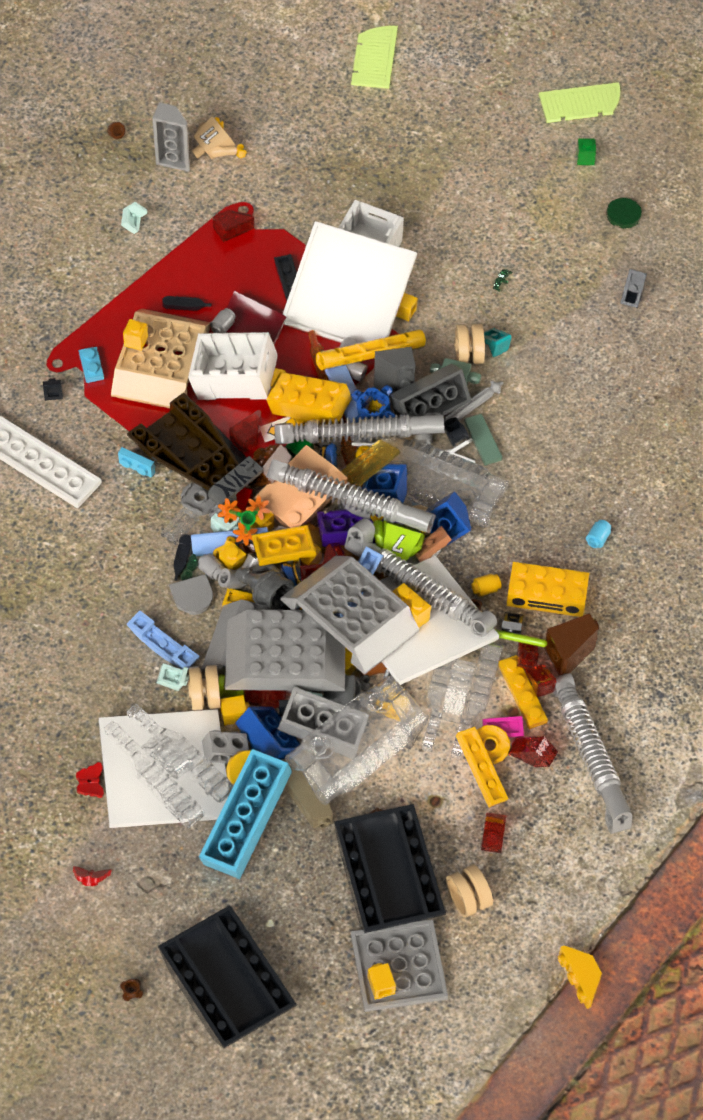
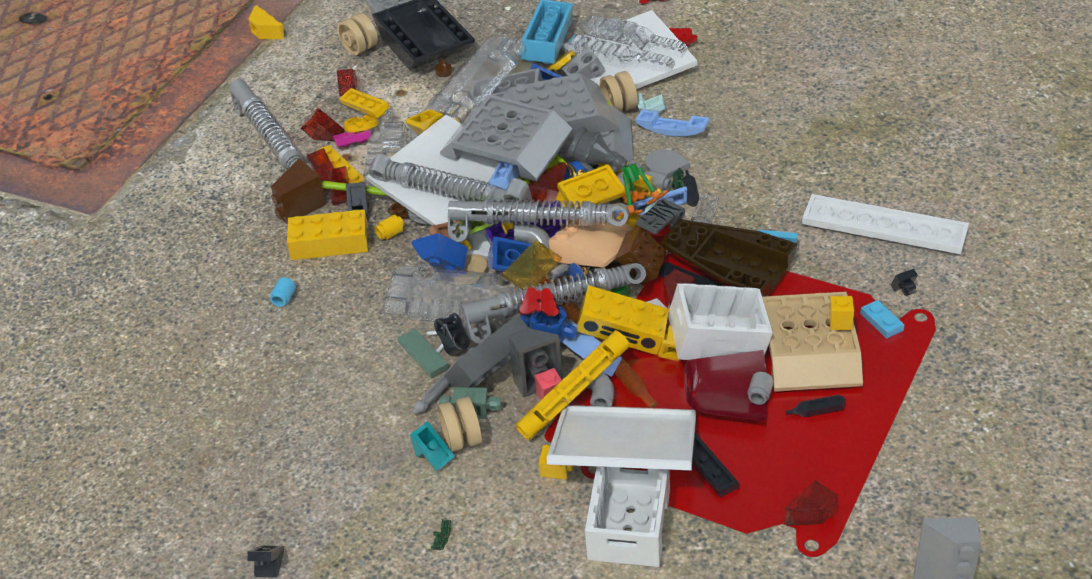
camera: 170 degrees right, 15 degrees down
(131, 217) = (941, 482): light aqua bracket -> none
(379, 407) = (546, 305): none -> red animal
(418, 606) = (453, 160): yellow brick -> none
(425, 683) = (423, 120): none -> yellow slope

